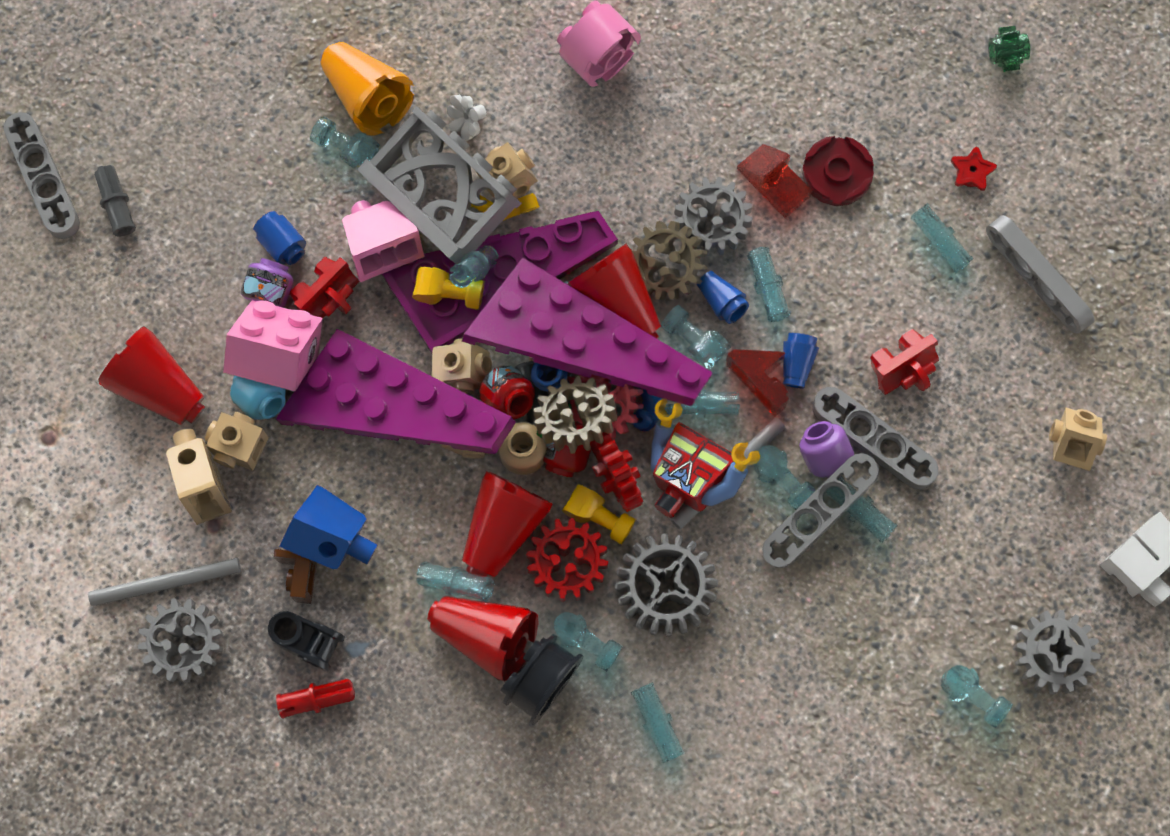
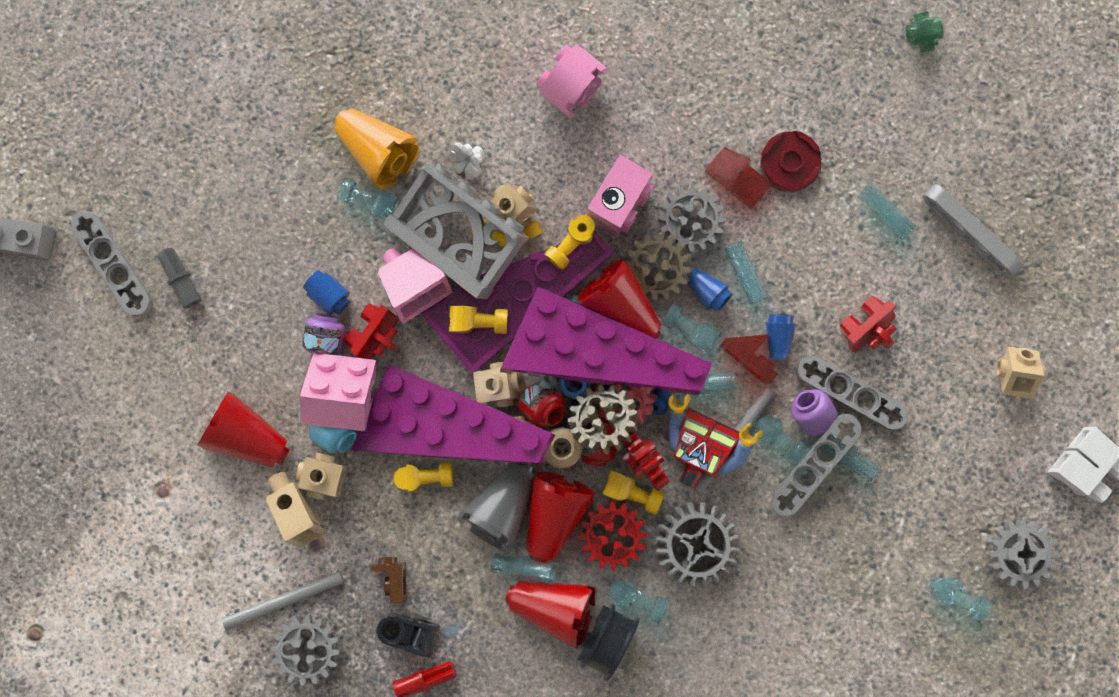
camera: 10 degrees left, 10 degrees up
(327, 531) = (412, 543): blue torso -> none
(341, 461) = (412, 477): none -> yellow leg
(438, 507) = (501, 506): none -> dark grey cone
(473, 266) = (497, 301): clear light blue pin -> none
(582, 208) = (579, 232): none -> yellow leg
(633, 176) = (619, 195): none -> bright pink brick
(657, 722) = (706, 659): clear light blue pin -> none
(970, 178) = (901, 152): red plate -> none

